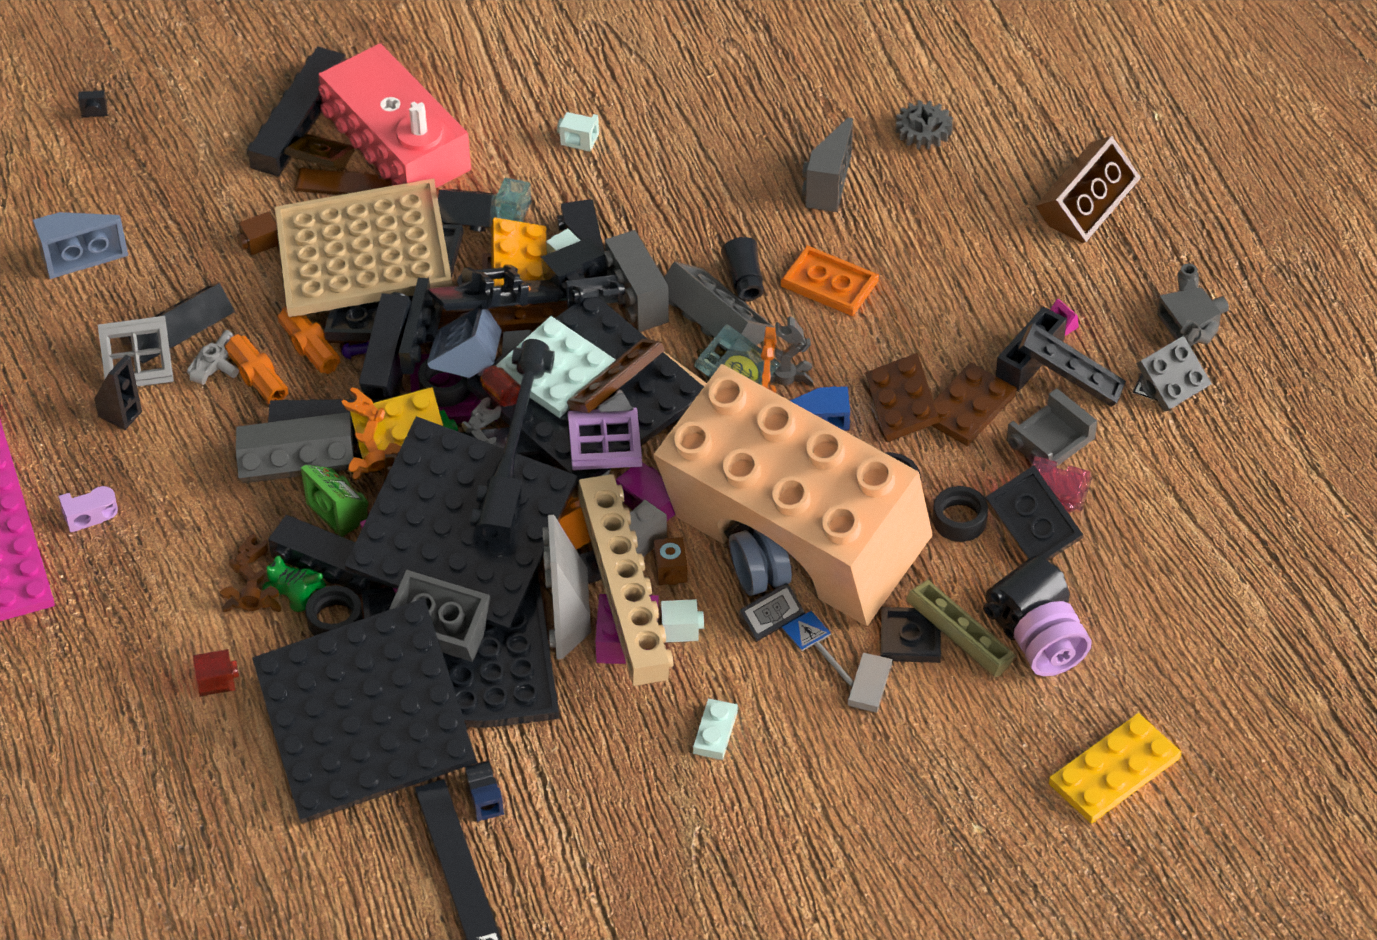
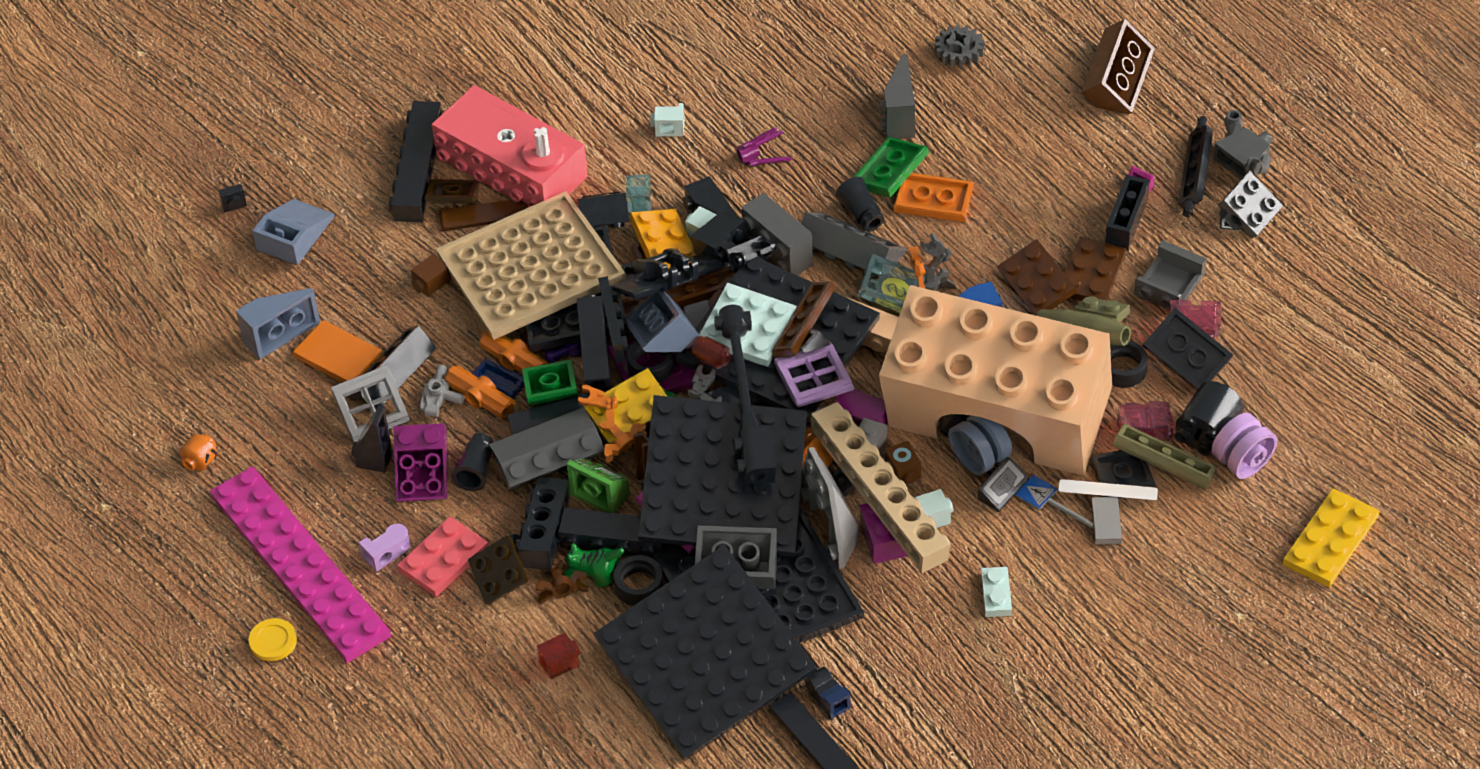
camera: 15 degrees left, 0 degrees up
(129, 290) = (336, 352): none -> orange tile
(136, 151) = (291, 230): none -> sand blue slope
(144, 534) = (442, 556): none -> coral plate
(163, 427) = (421, 462): none -> magenta slope
(191, 559) = (498, 569): none -> dark brown plate
(214, 444) = (473, 465): none -> black plant
(248, 535) = (543, 519): none -> black brick
(286, 361) = (504, 379): none -> clear blue tile
(327, 377) = (549, 383): none -> green slope
(649, 183) = (749, 150): none -> magenta plant
(795, 236) = (891, 165): none -> green tile
(884, 648) = (1106, 489): none -> white sticker
(941, 460) = (1095, 315): none -> olive plate
(960, 582) = (1149, 418): none -> clear pink brick
(1072, 365) = (1168, 217): black plate -> none
(1131, 316) = (1195, 166): none -> black plate

